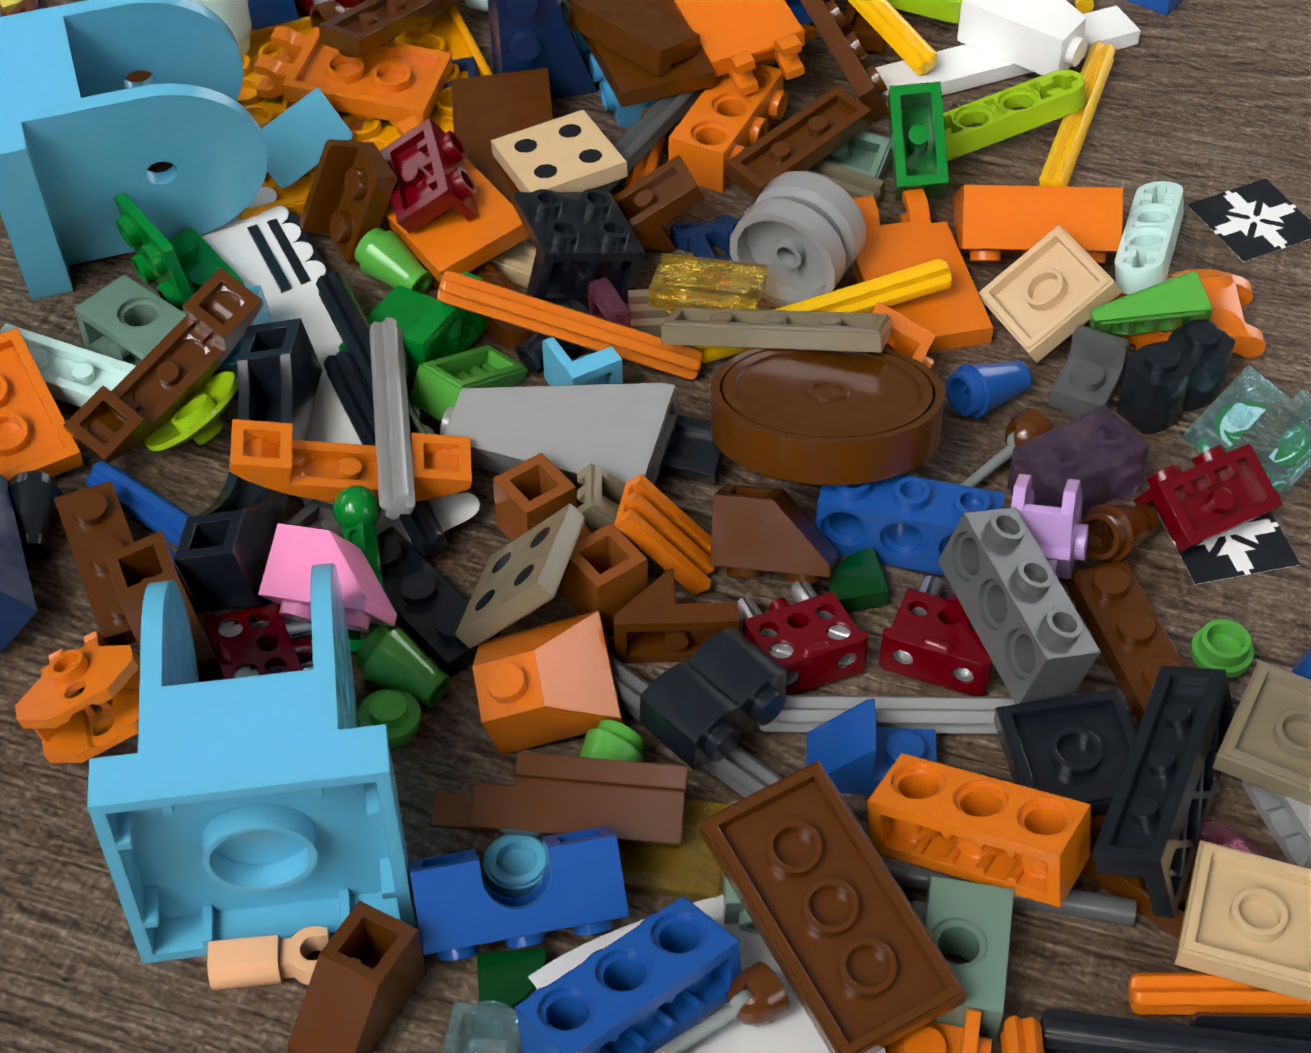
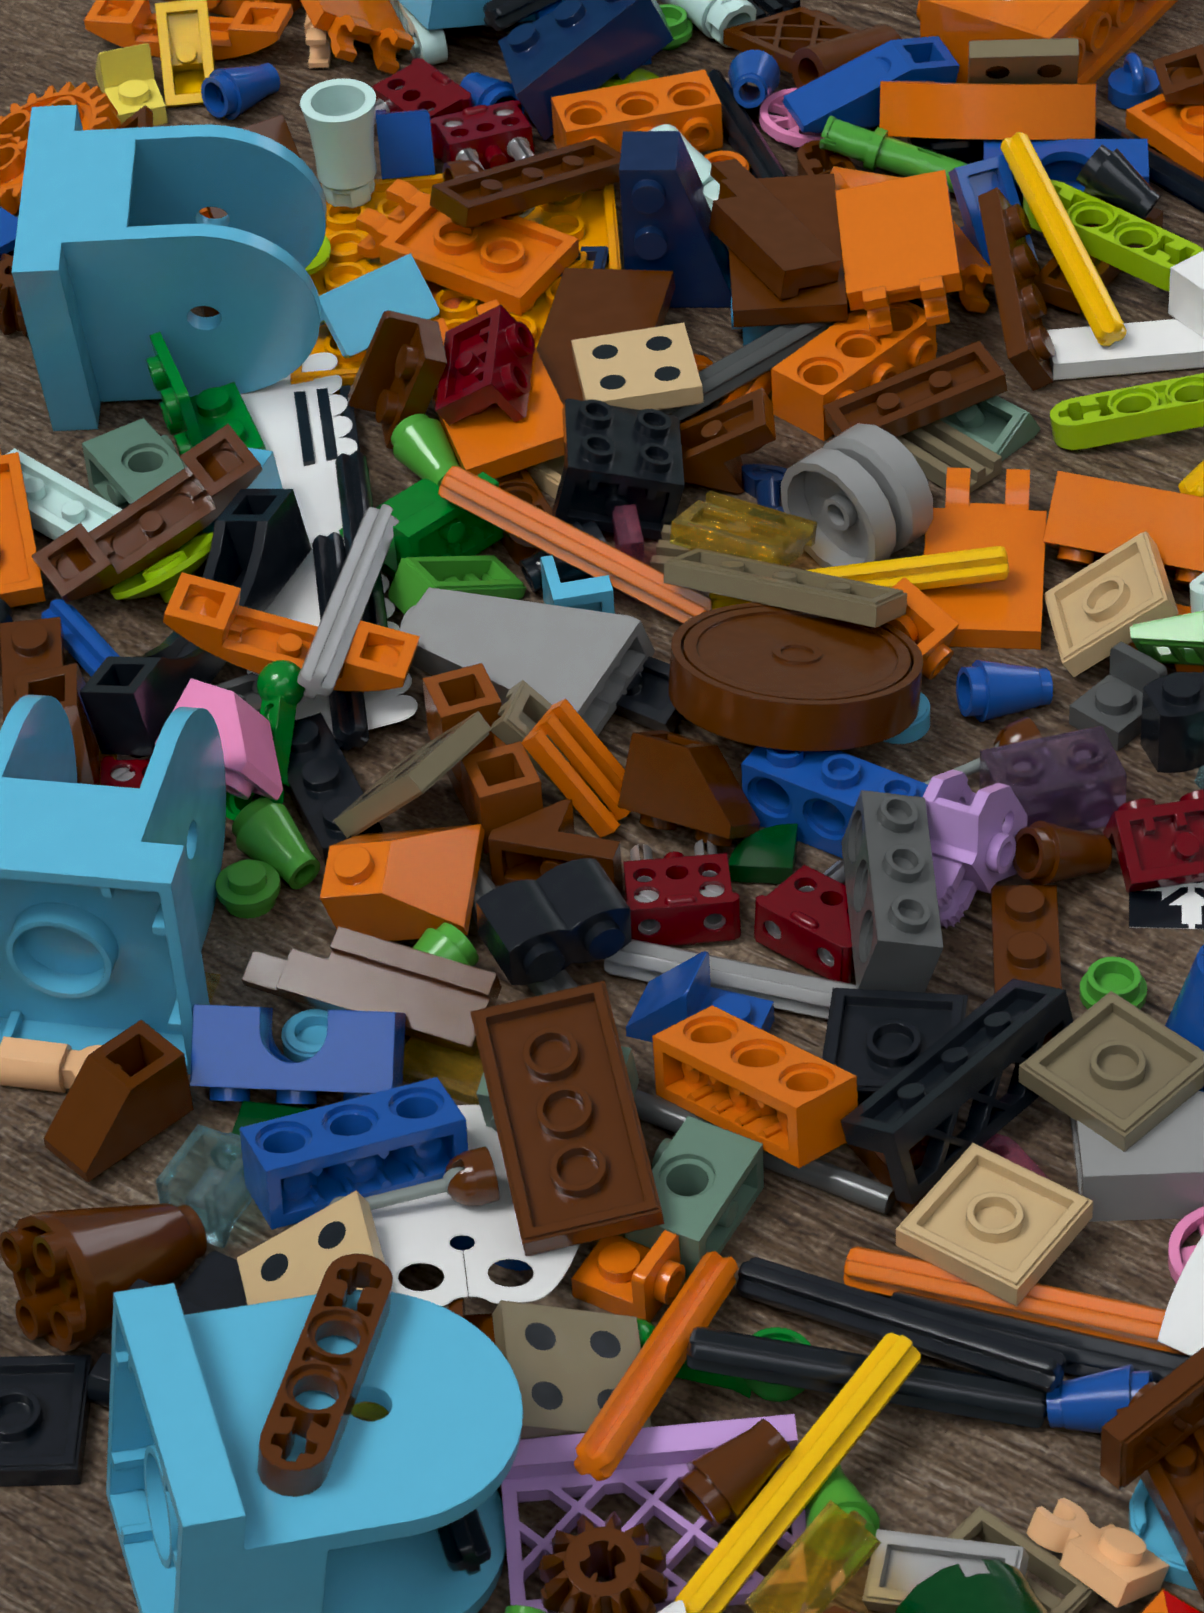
camera: 20 degrees right, 5 degrees down
(918, 139) = (1042, 414): green brick -> none

